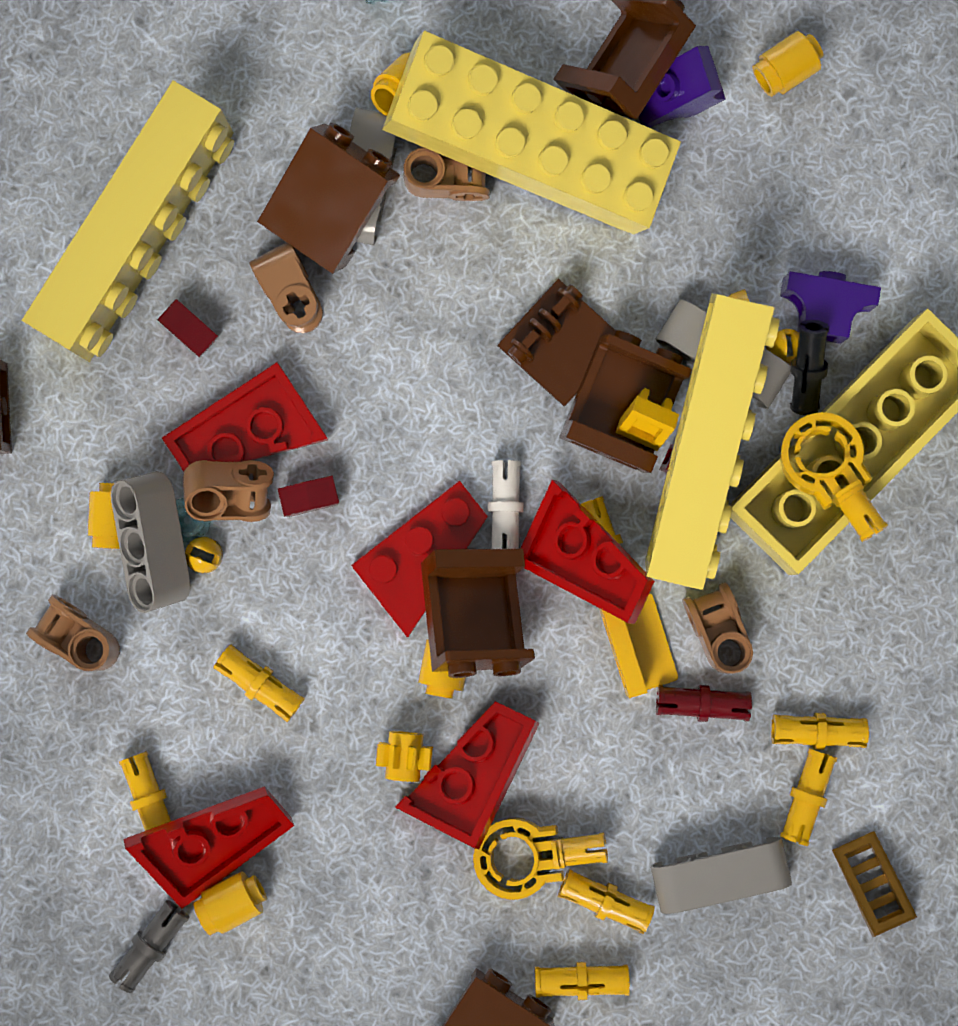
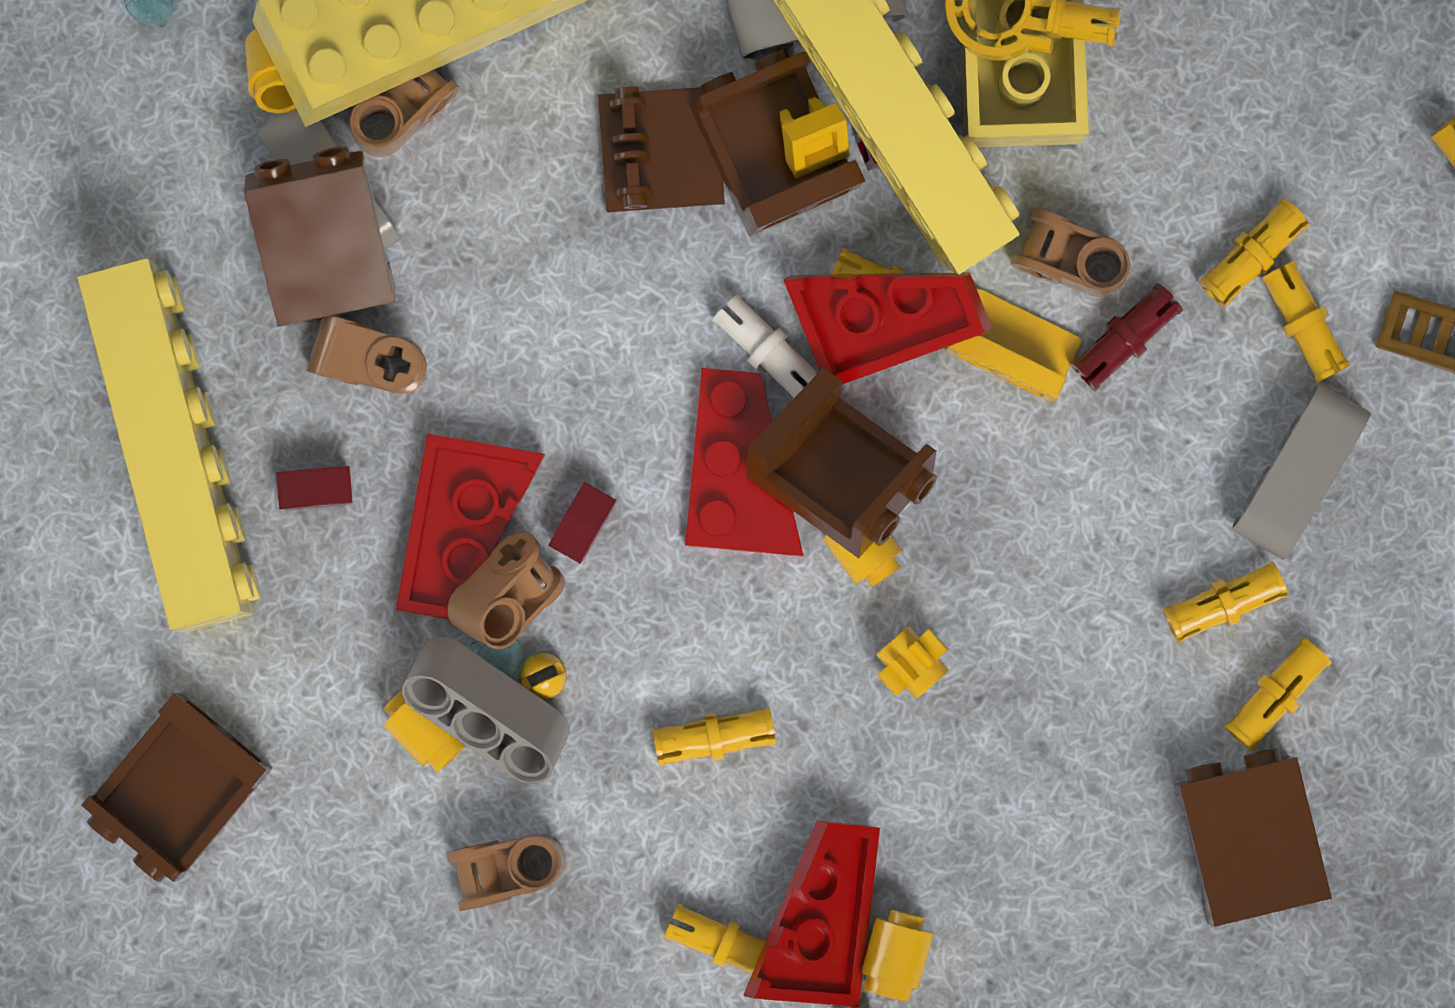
camera: 50 degrees left, 0 degrees up
(472, 780) = (994, 617): red wing -> none
(565, 853) = (1143, 594): yellow pin -> none

